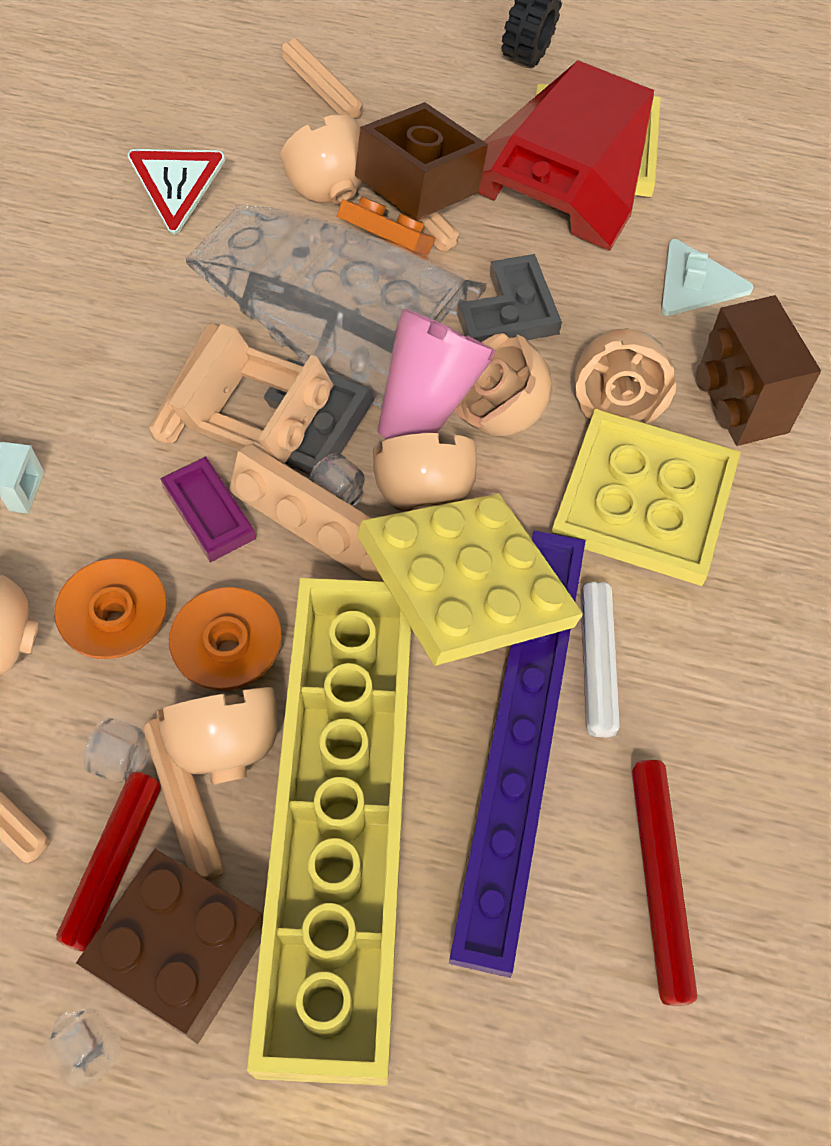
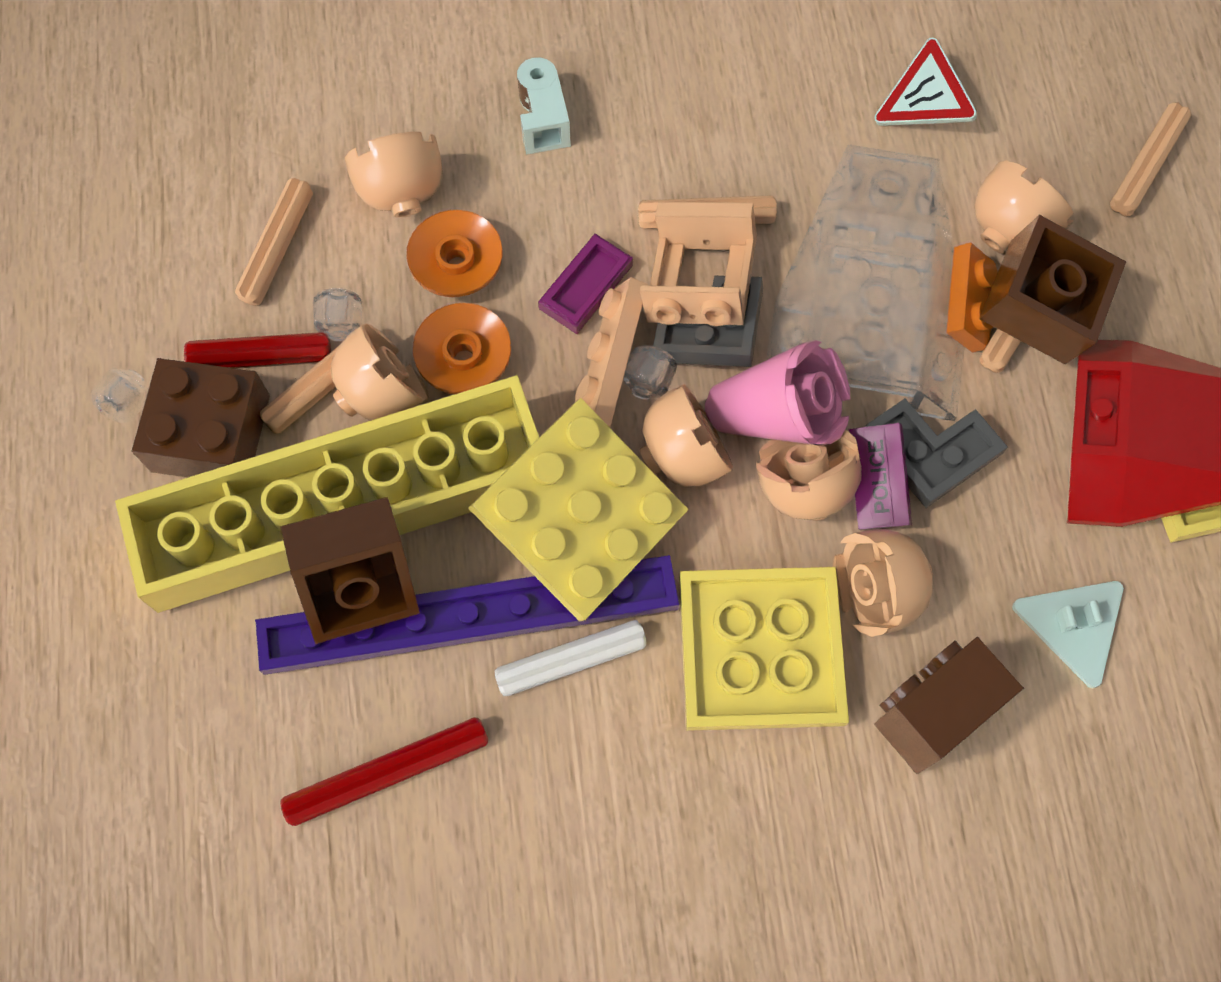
camera: 70 degrees right, 10 degrees up
(451, 810) = (350, 570): none -> reddish brown brick
(553, 347) = (883, 489): none -> magenta tile

